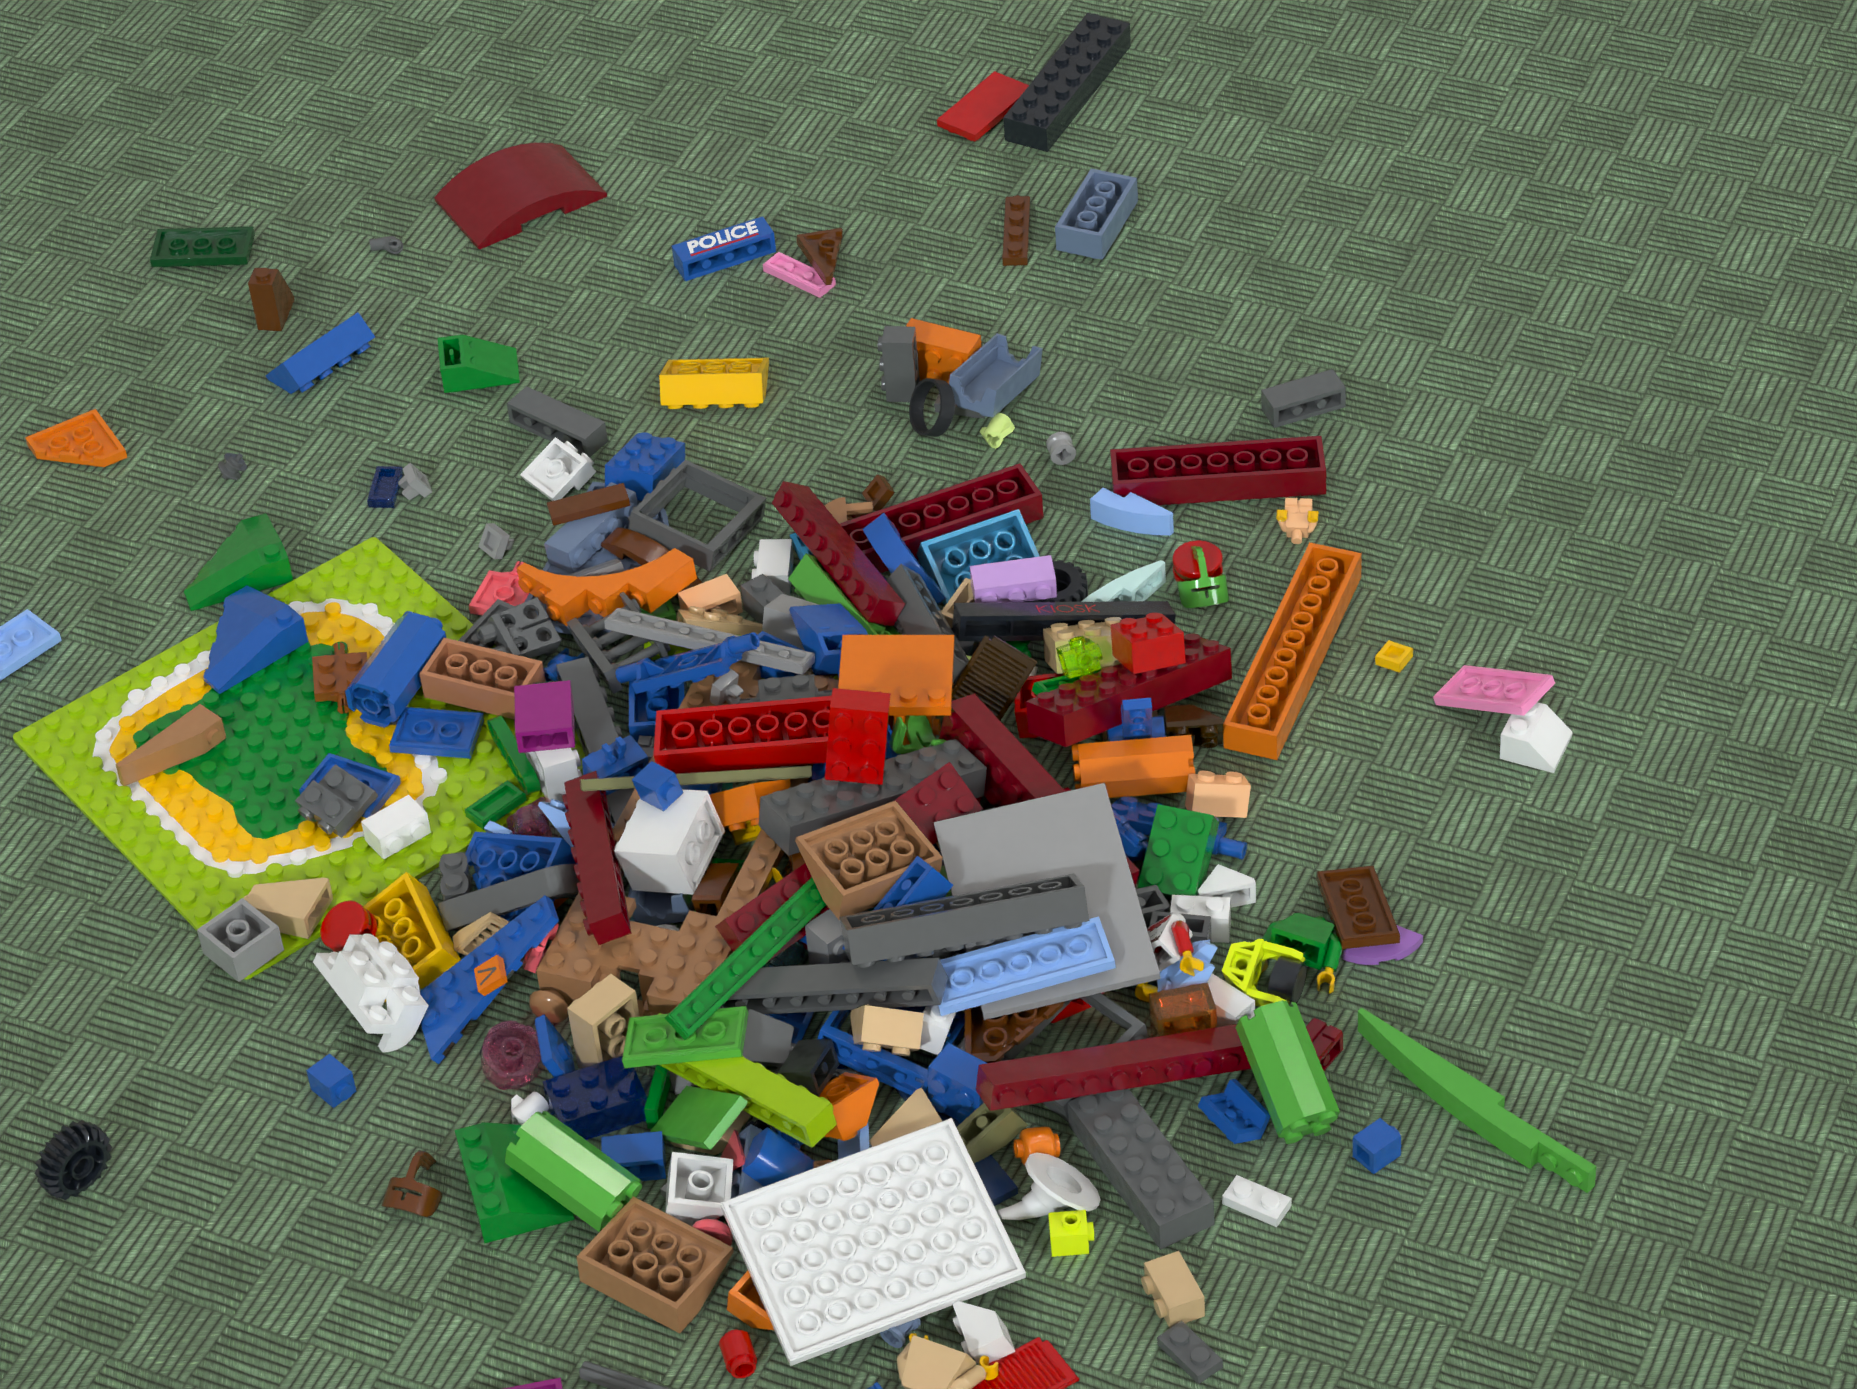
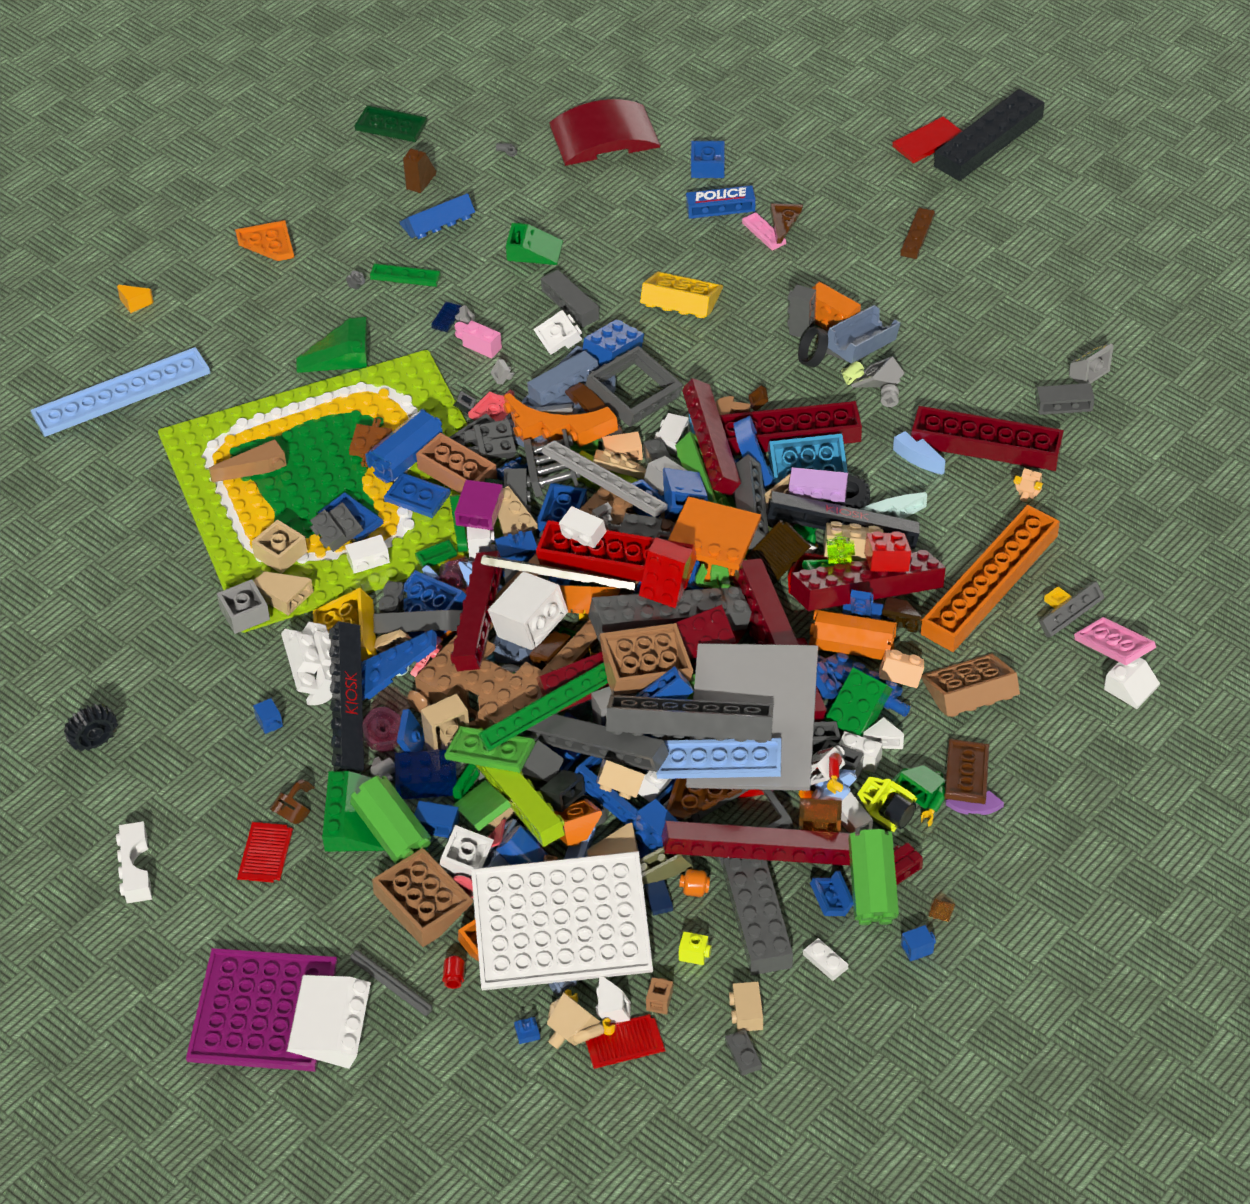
camera: 15 degrees right, 5 degrees up
(220, 1352) = (136, 882): none -> white arch
(251, 636) = (324, 401): blue slope -> none
(262, 846) = (279, 546): none -> tan brick
(301, 444) = (405, 275): none -> green tile
(345, 920) = (314, 611): red head -> none
(397, 1266) = (265, 852): none -> red window
(445, 503) = (479, 338): none -> bright pink brick
(445, 1022) = (346, 698): none -> black brick
(457, 594) = (464, 402): none -> black plate
(490, 975) = (384, 673): orange tile -> none
(588, 504) = (563, 362): reddish brown tile -> none
(596, 723) = (513, 515): none -> tan wing
(657, 786) = (528, 573): blue brick -> none
(685, 196) = (707, 159): none -> blue brick
(687, 666) = (582, 492): blue plate -> none
(713, 706) = (582, 527): none -> white brick
(1037, 423) = (880, 374): none -> light grey slope
(1045, 1307) = (659, 995): none -> medium nougat brick
(1053, 1189) = (695, 913): white piece -> none
(1096, 214) = (973, 234): sand blue brick -> none
(1186, 567) = (950, 500): red head -> none
(1198, 598) = (941, 525): bright green helmet -> none
(1320, 794) = (971, 684): none -> medium nougat slope
(1324, 345) = (1092, 364): none -> light grey slope
(1391, 1096) = (941, 910): none -> clear orange slope
(1417, 665) = (1071, 609): none -> dark grey plate
(1474, 1103) = (994, 932): bright green slope -> none

